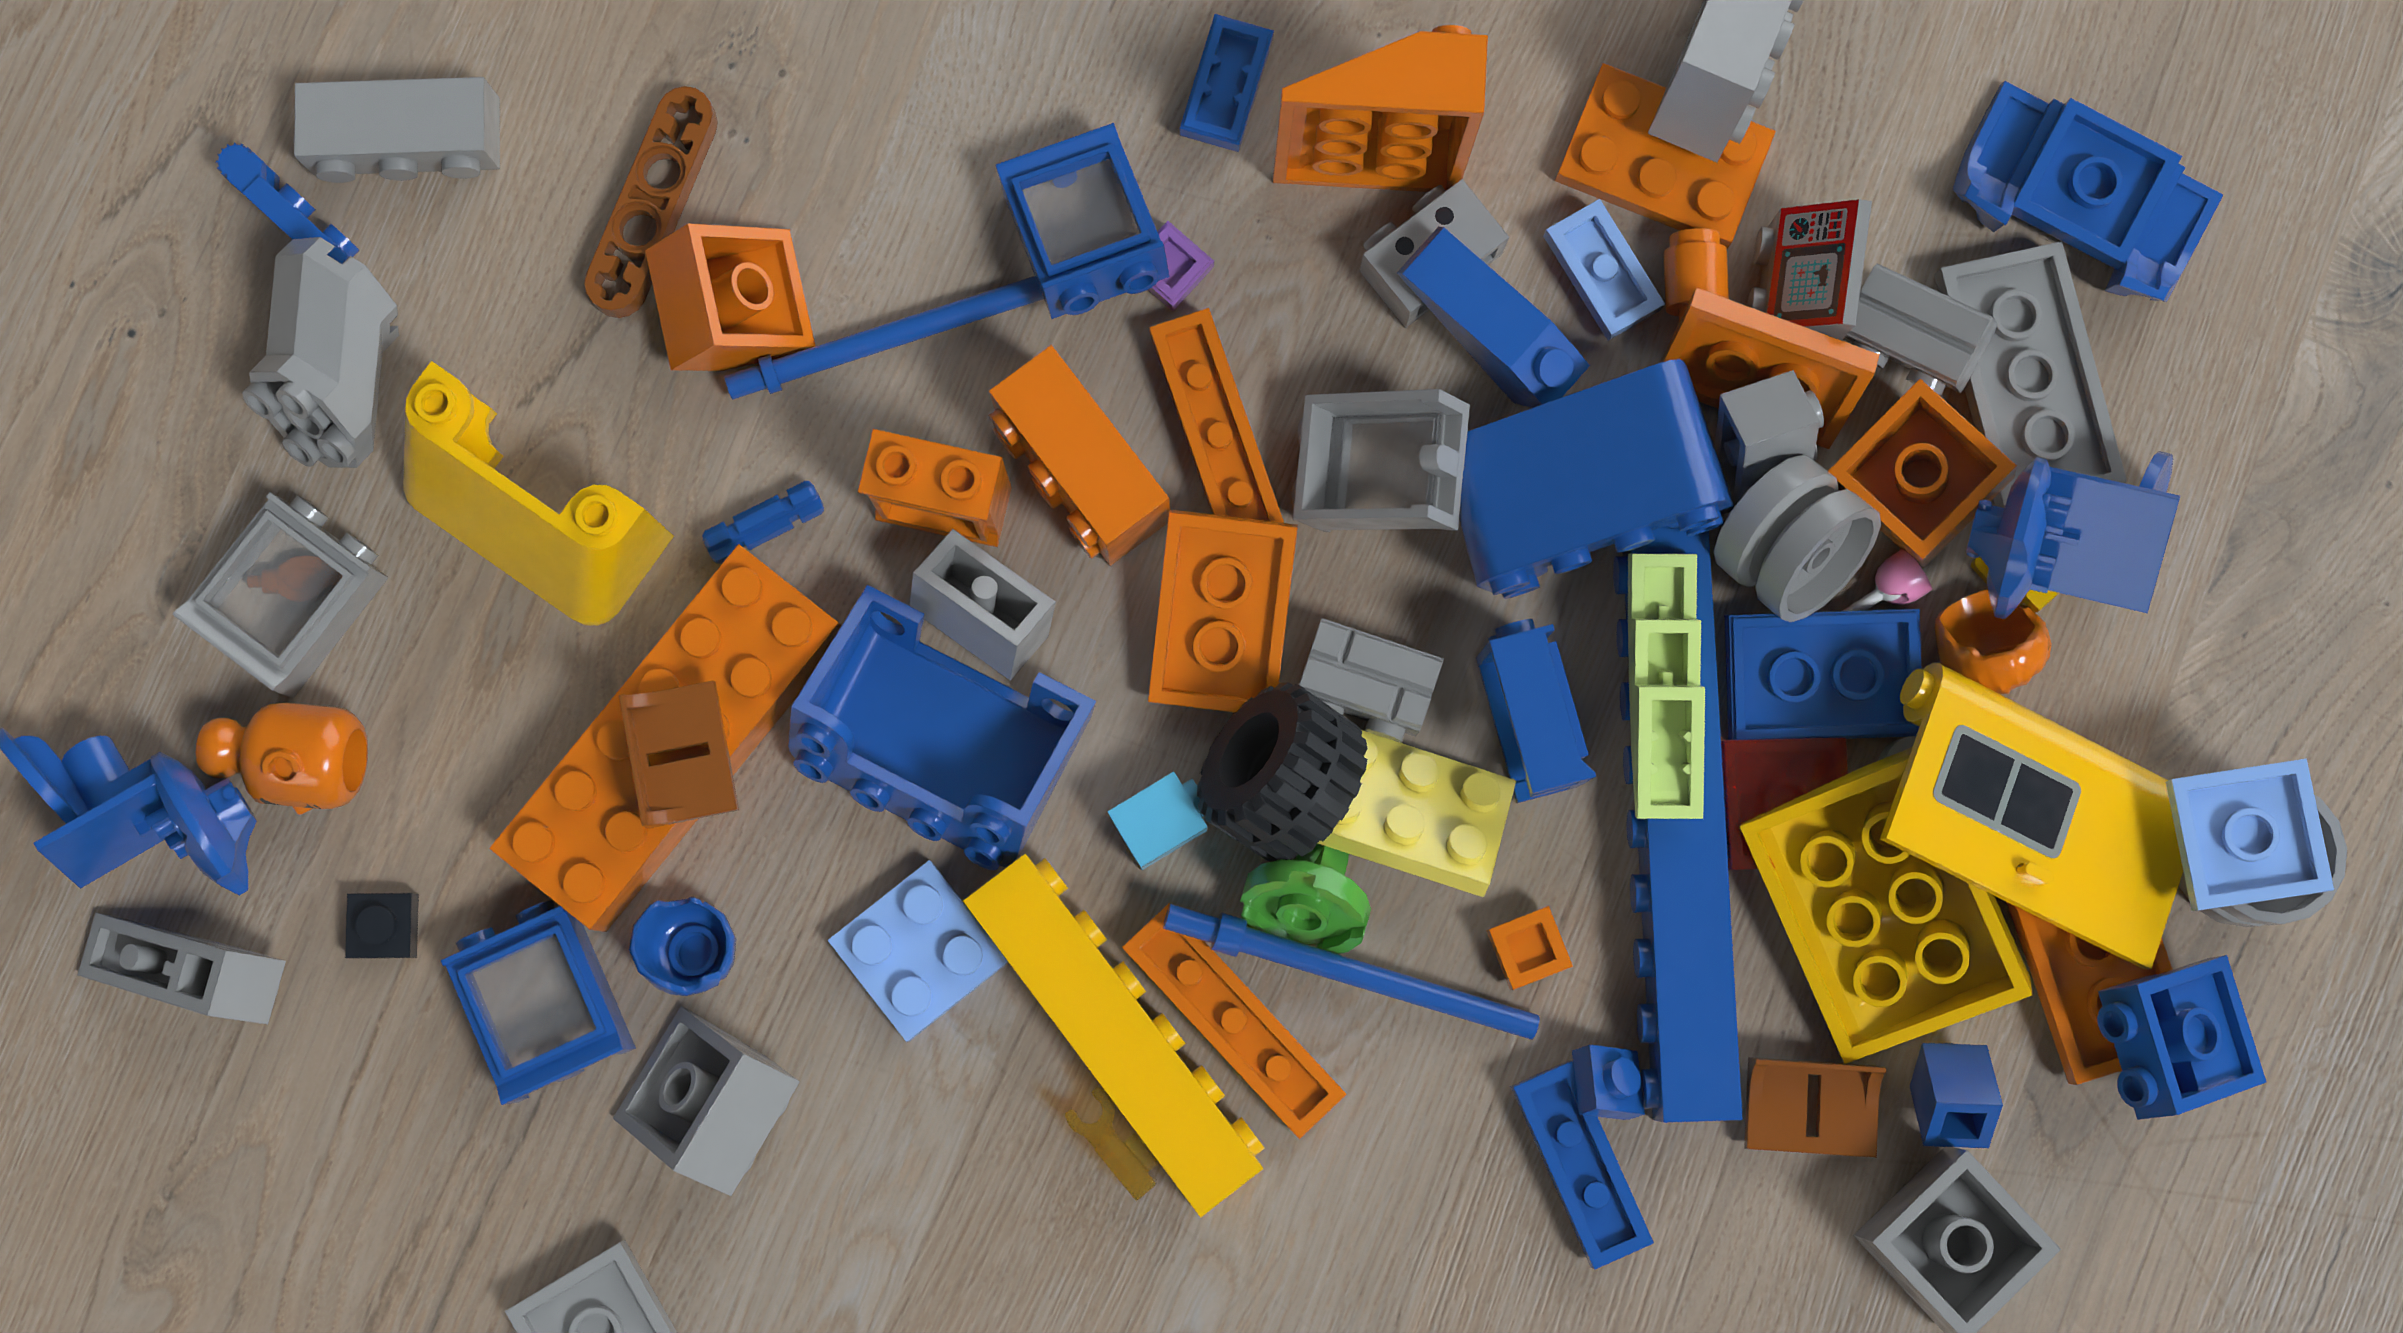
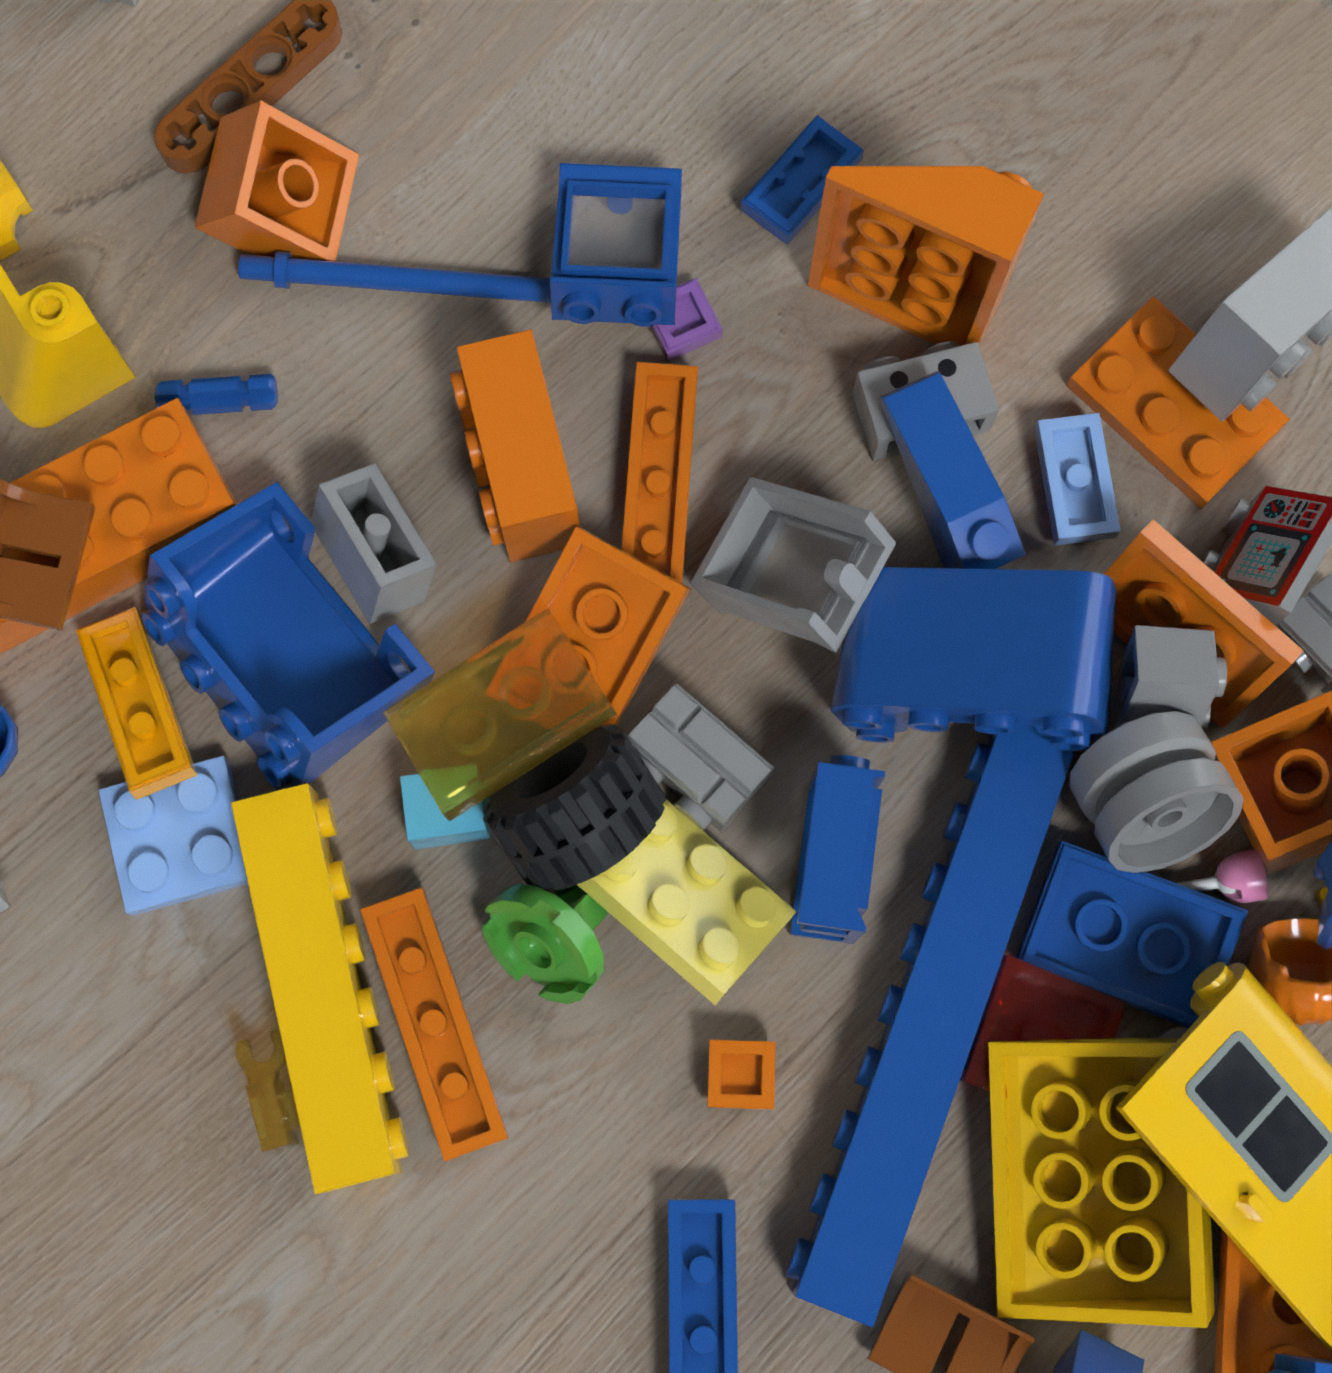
camera: 25 degrees right, 5 degrees down
(825, 845) = (136, 703): none -> light orange tile
(936, 487) = (376, 418): orange window -> none
(1175, 716) = (499, 714): none -> clear yellow tile
(1230, 936) = (464, 941): blue bar -> none
(1608, 1082) = (760, 1235): blue plate -> none
(1665, 687) = (970, 879): yellowish green slope -> none
(1693, 262) = (1166, 499): orange brick -> none

